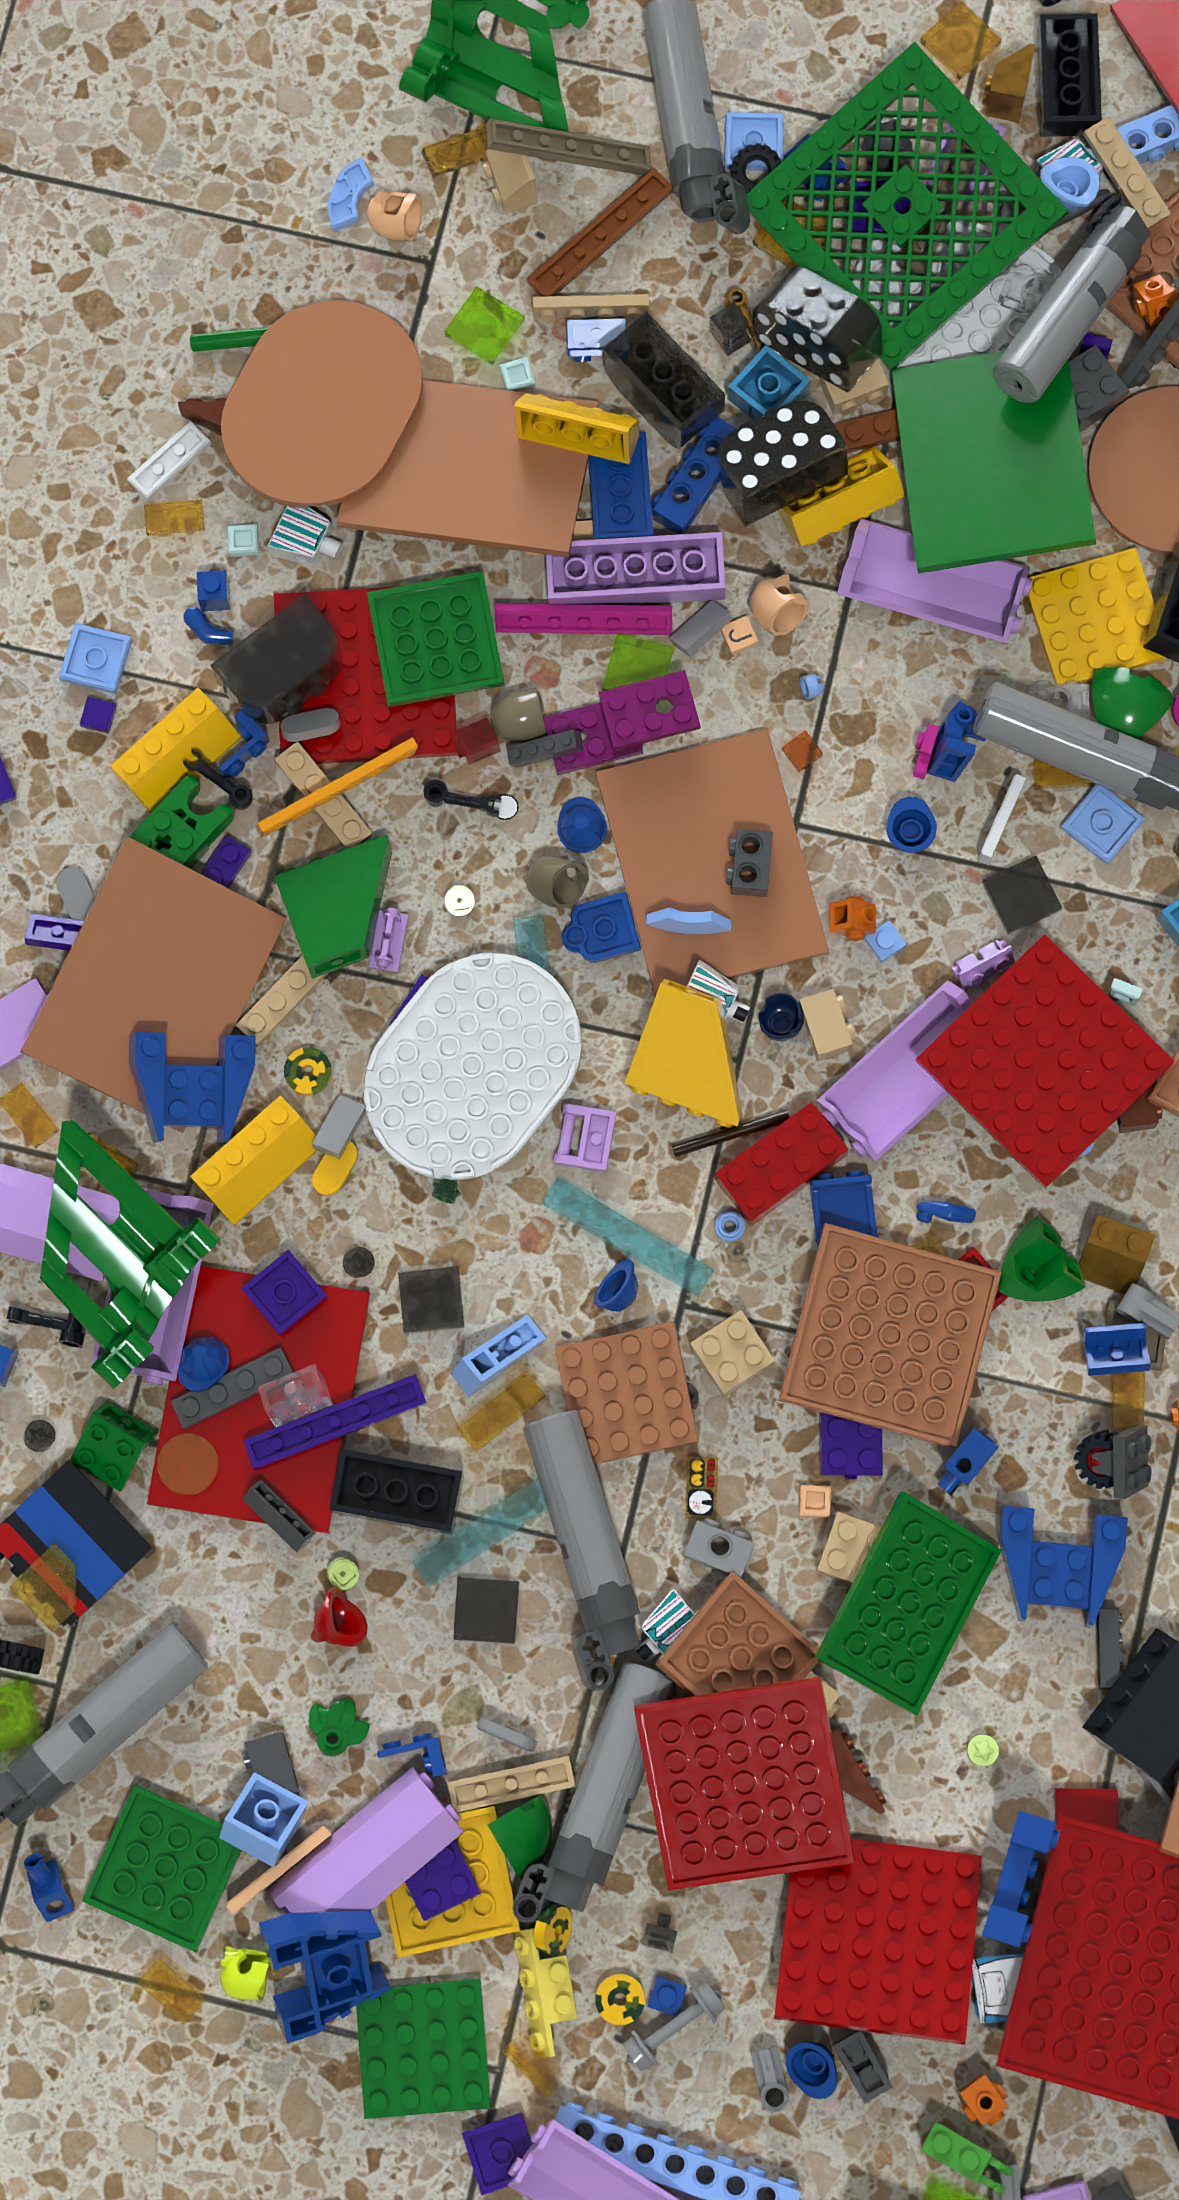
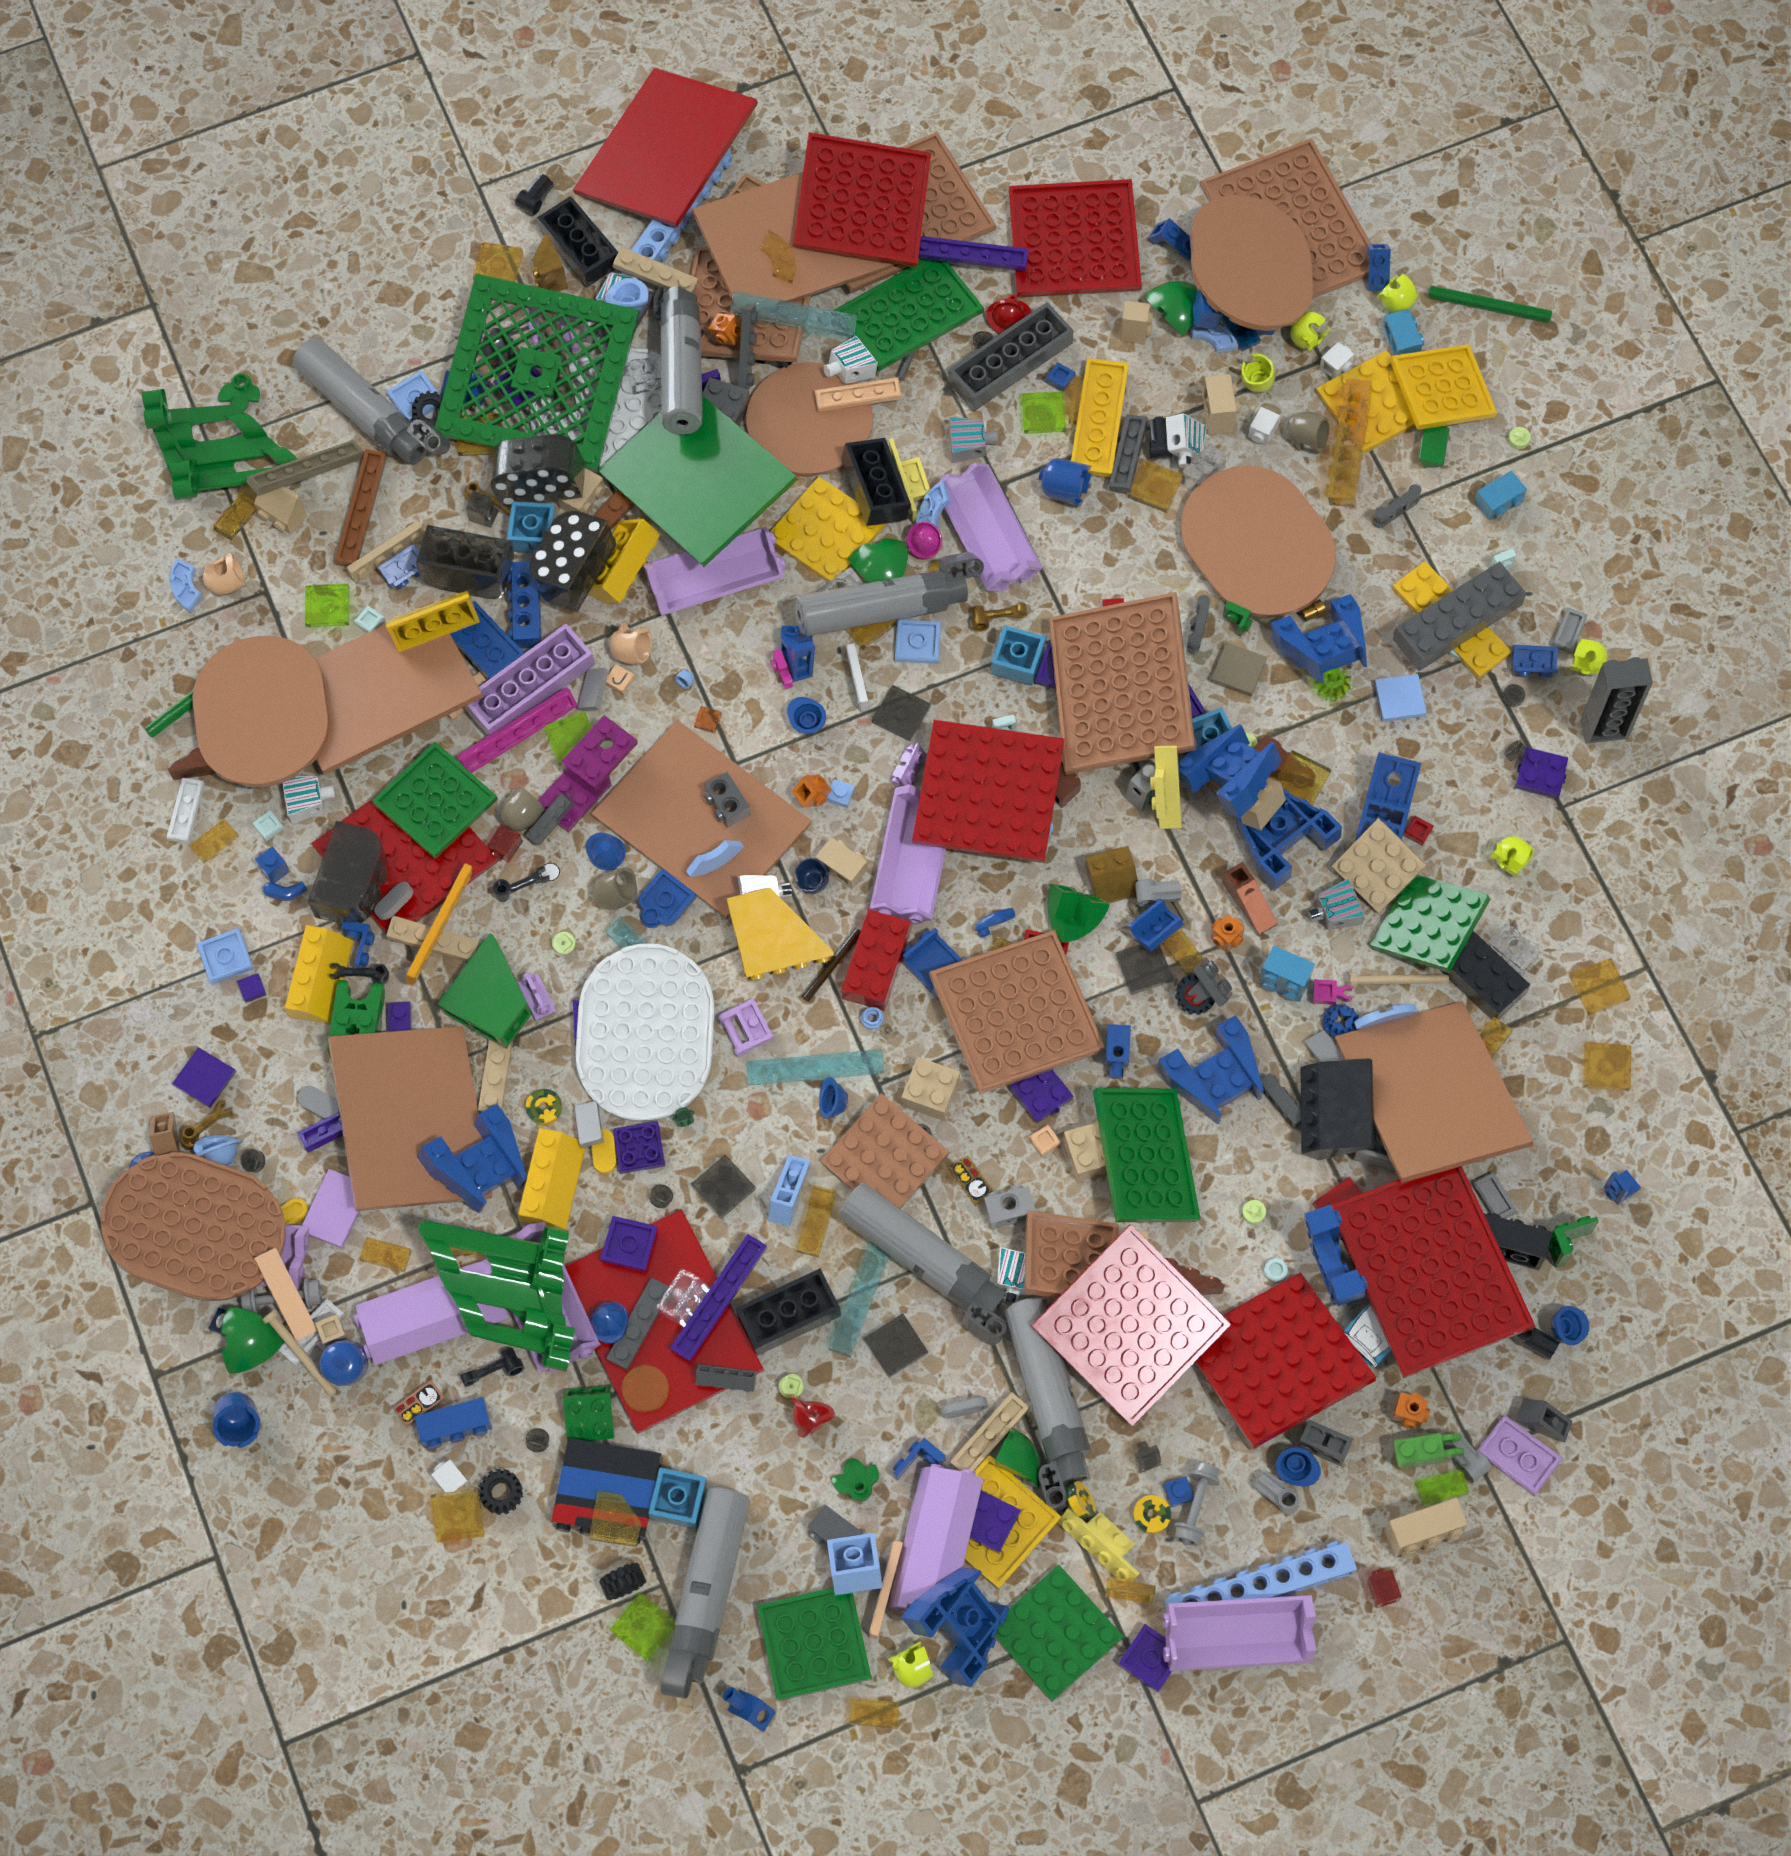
camera: 40 degrees left, 10 degrees down
(135, 1609) = (678, 1498): none -> dark azure brick
(375, 1190) = (639, 1147): none -> dark purple tile
(957, 1832) = (1275, 1270): none -> light aqua tile
(1068, 1387) = (1143, 968): none -> clear smoke tile

